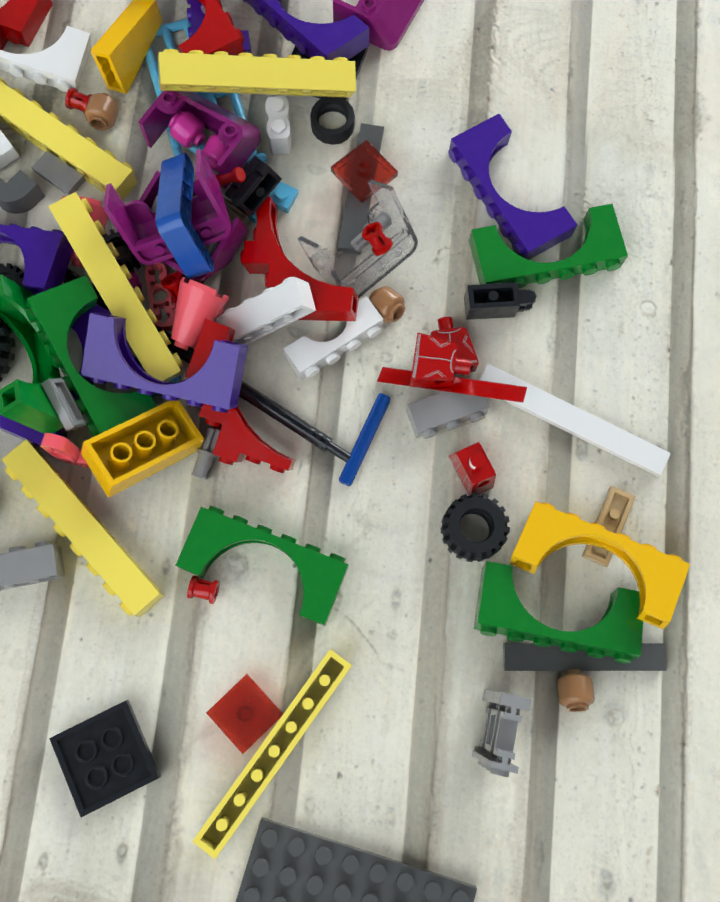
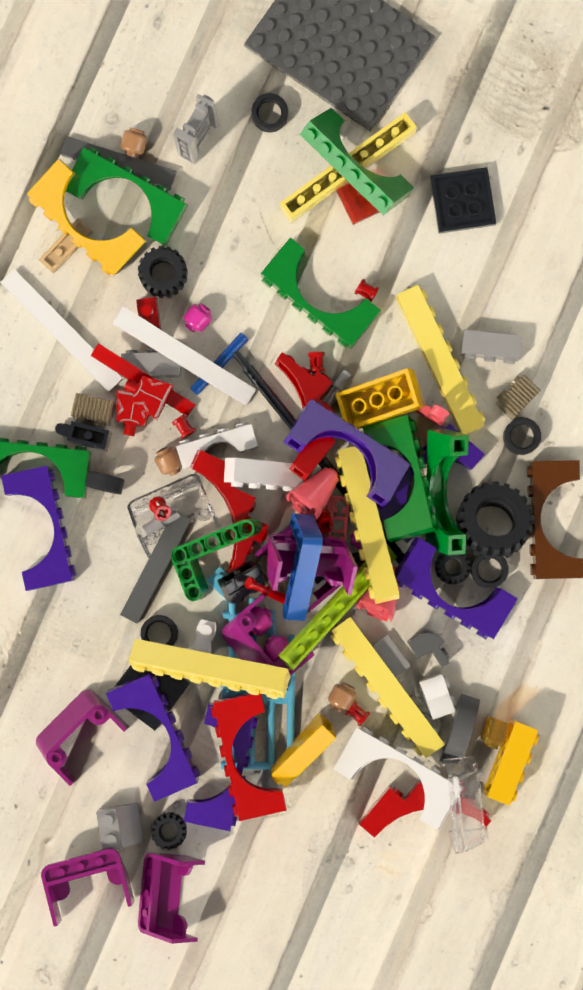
camera: 160 degrees left, 10 degrees up
(64, 403) = (427, 443): light grey tile -> none
(139, 160) = (325, 619): none -> lime tile
(242, 476) = (316, 362): none -> red bush
(318, 779) = (379, 190): none -> green arch
(323, 208) = (208, 546): none -> green beam
(360, 167) = (149, 576): clear red plate -> none
(382, 350) = (184, 426): none -> red bush
(410, 485) = (198, 317): none -> dark pink head
(413, 426) = (184, 356): none -> white tile
(429, 796) = (269, 97): none -> black tyre
(453, 253) = (104, 482): none -> black tyre
(498, 335) = (92, 409): none -> dark tan brick

